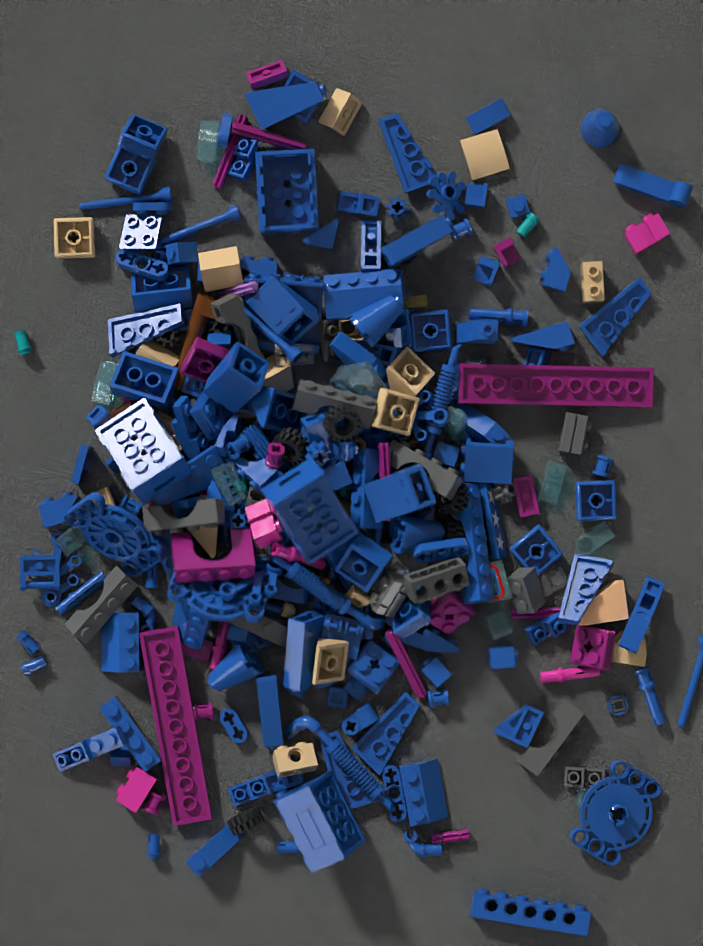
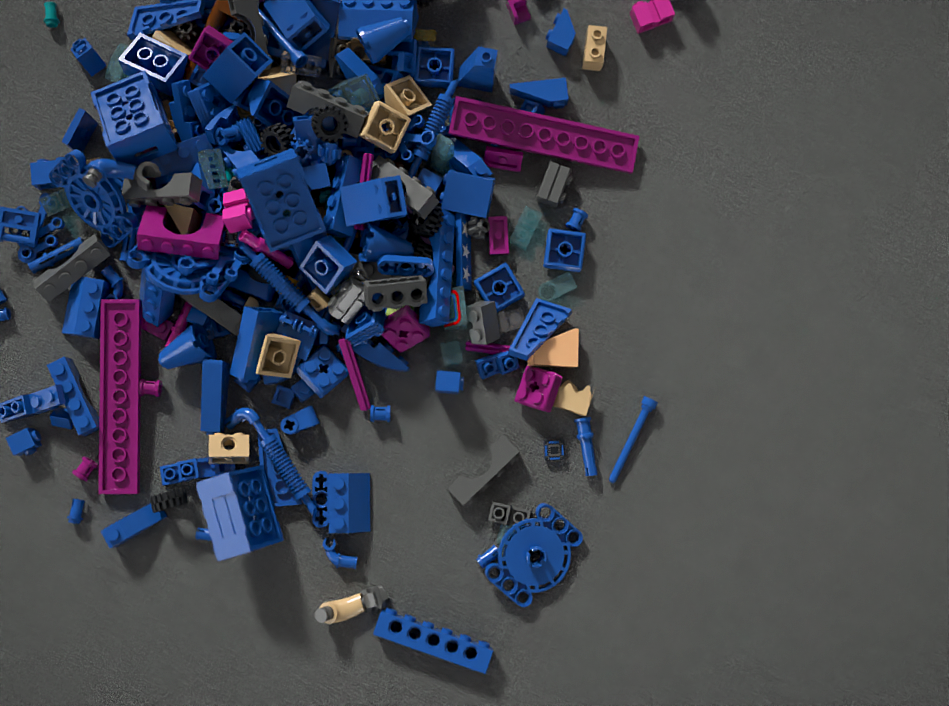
camera: 10 degrees right, 5 degrees down
(70, 381) = (87, 56): none -> blue slope
(89, 787) = (24, 442): none -> blue brick
(130, 508) = (105, 168): none -> piece
(136, 788) = (69, 451): dark pink brick -> none
(237, 722) = (173, 407): blue beam -> none
(275, 453) = (260, 146): magenta bush -> none
(382, 738) = (322, 440): blue wing -> none
(435, 671) = (382, 386): blue brick -> none
(440, 895) = (349, 607): none -> piece
(451, 836) = (368, 551): magenta axle -> none
(486, 271) = (497, 22): blue panel -> none
(509, 316) = (513, 68): blue pin -> none
(517, 415) = (503, 158): none -> magenta plate
(520, 725) = (456, 454): blue wing -> none
(561, 675) = (511, 412): dark pink pin -> none
(570, 821) = (487, 557): none -> blue pin
(608, 321) = (607, 85): blue wing -> none
(641, 614) = (590, 365): blue slope -> none

